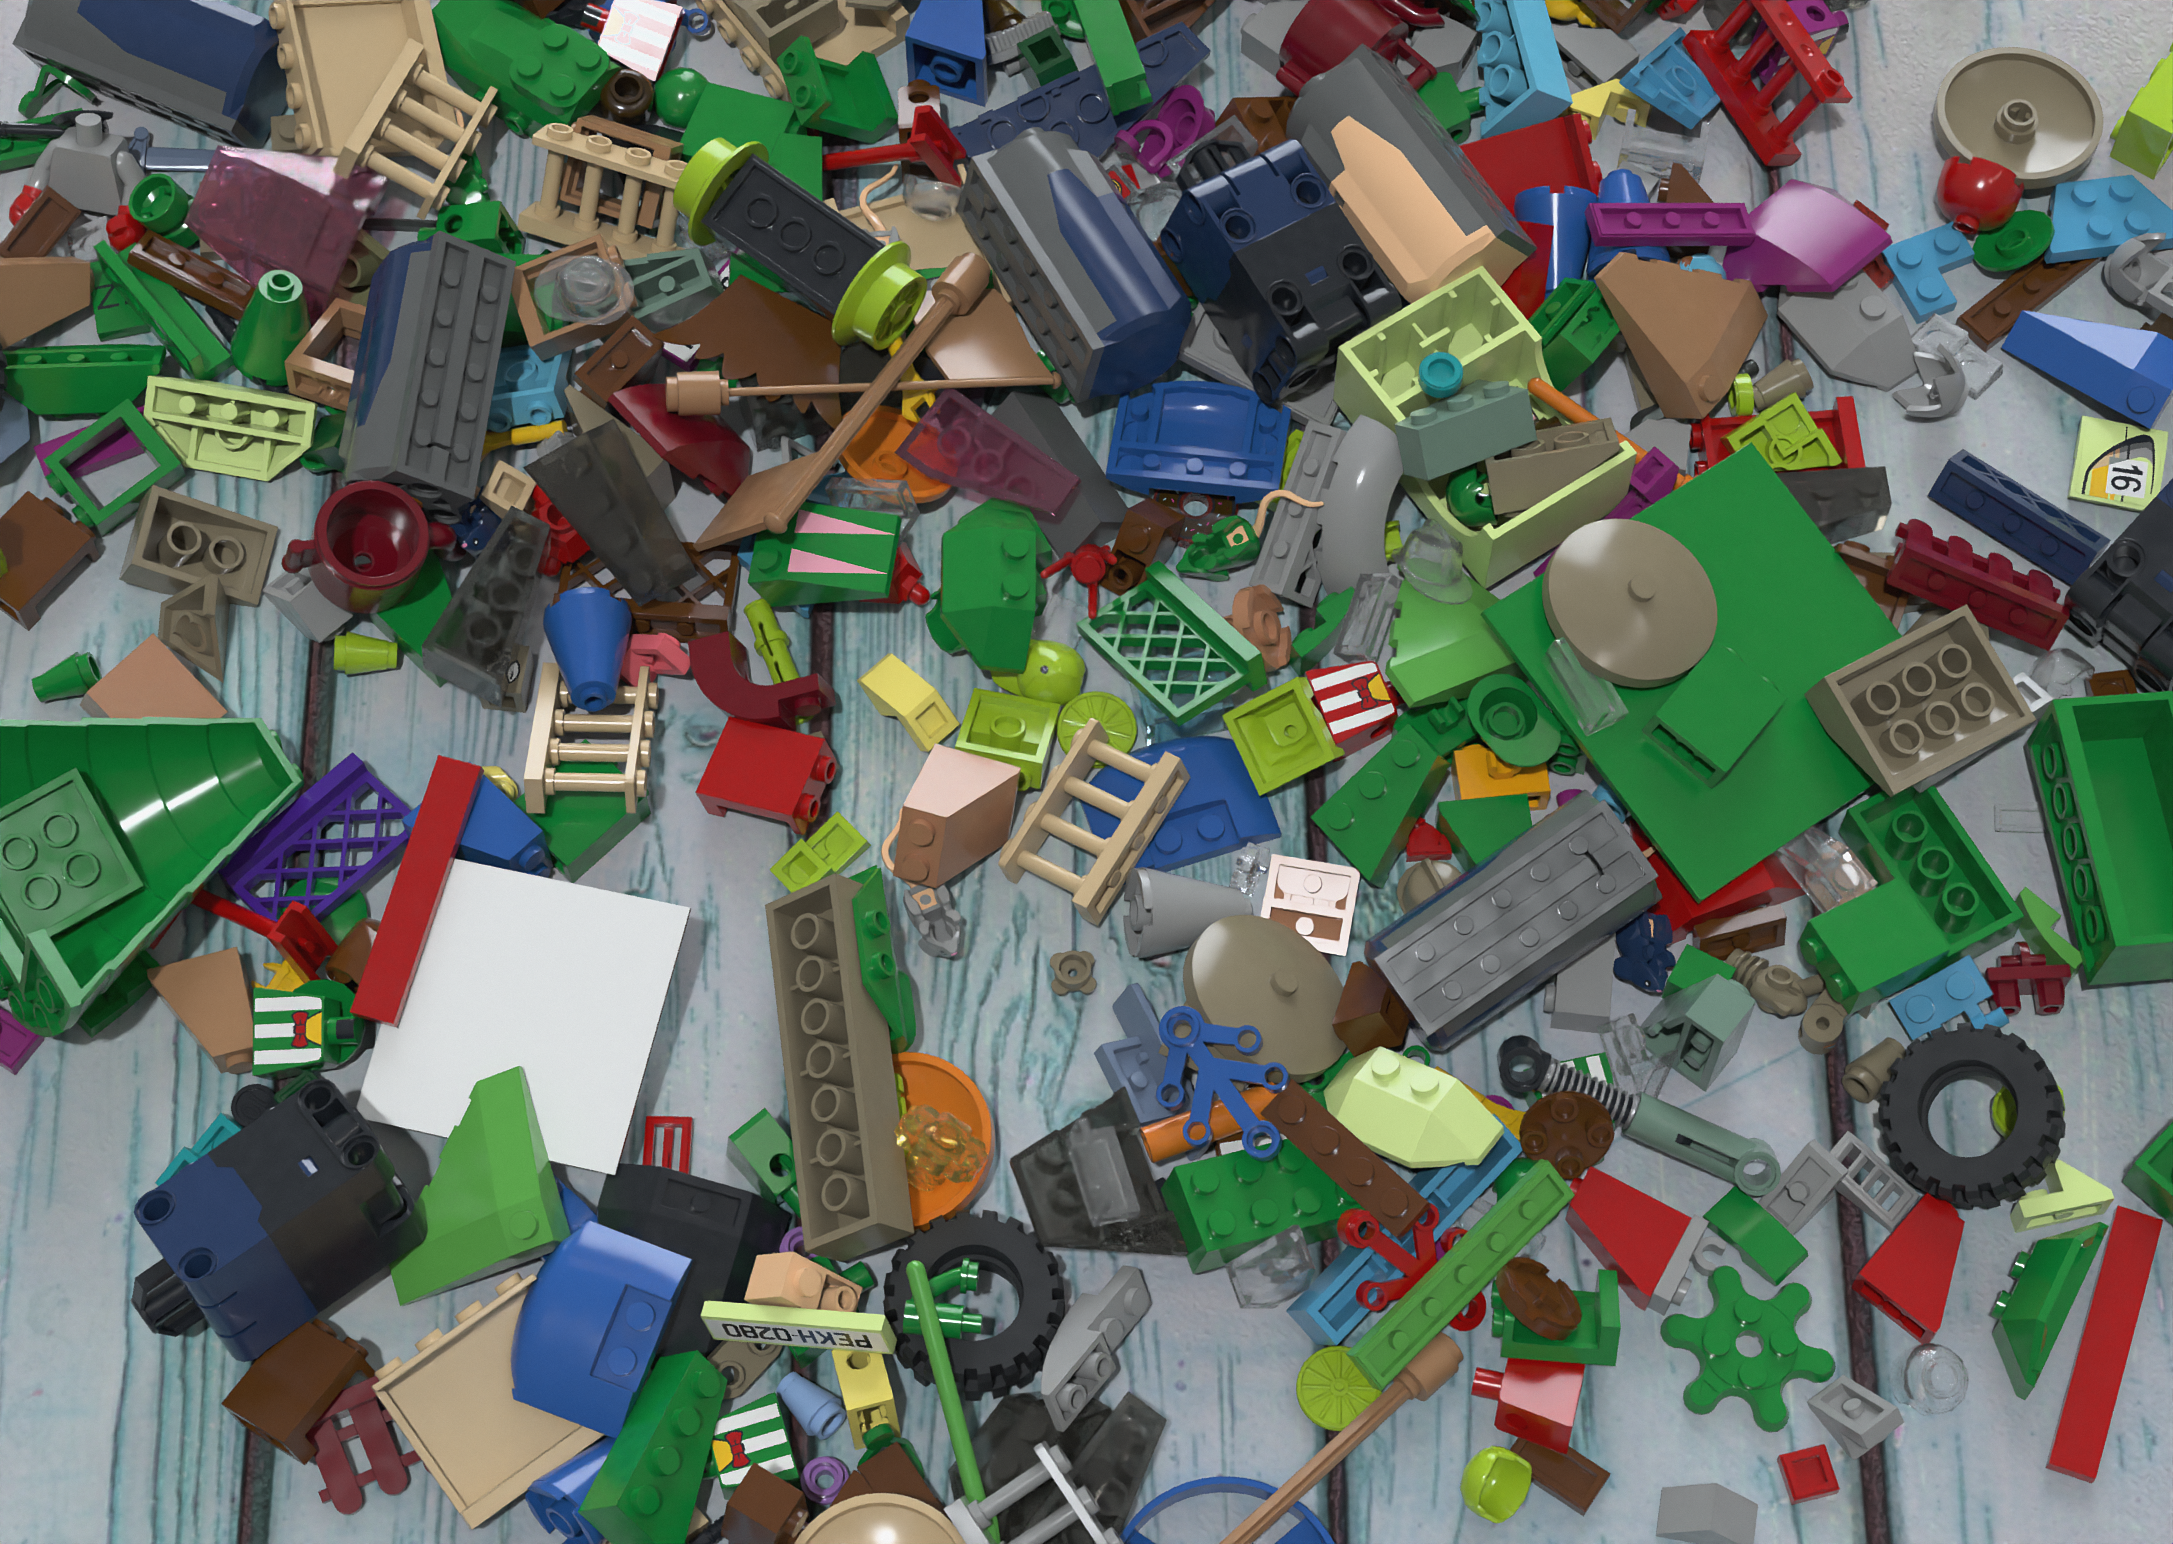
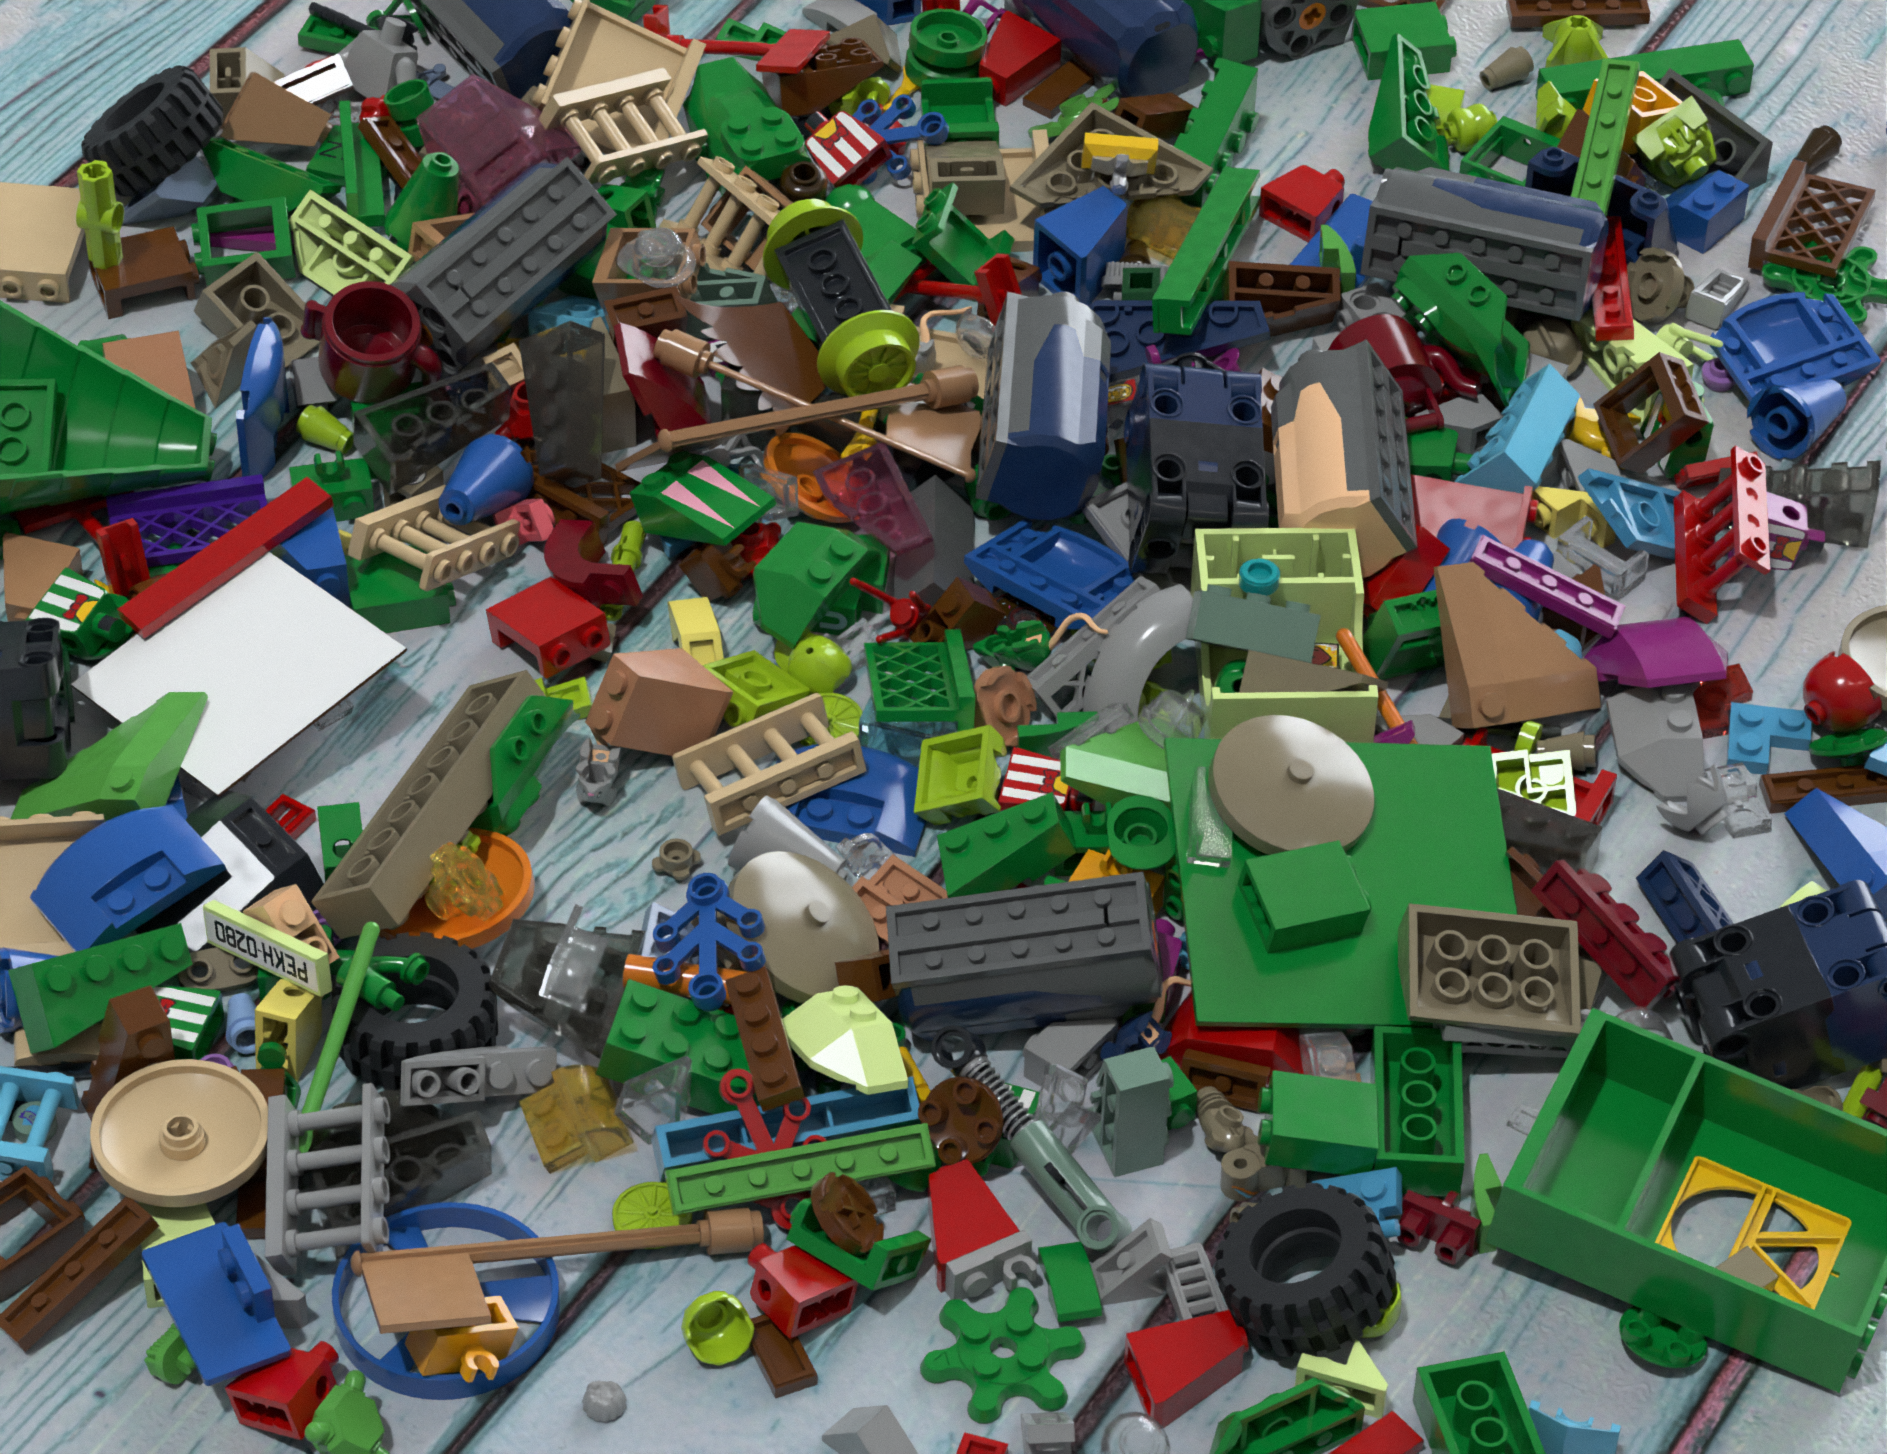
camera: 30 degrees right, 20 degrees down
(297, 662) = (263, 400): none -> blue slope
(428, 726) = (344, 481): none -> green brick
(880, 619) = (716, 569): none -> reddish brown brick
(1198, 1328) = (575, 1118): none -> clear yellow brick

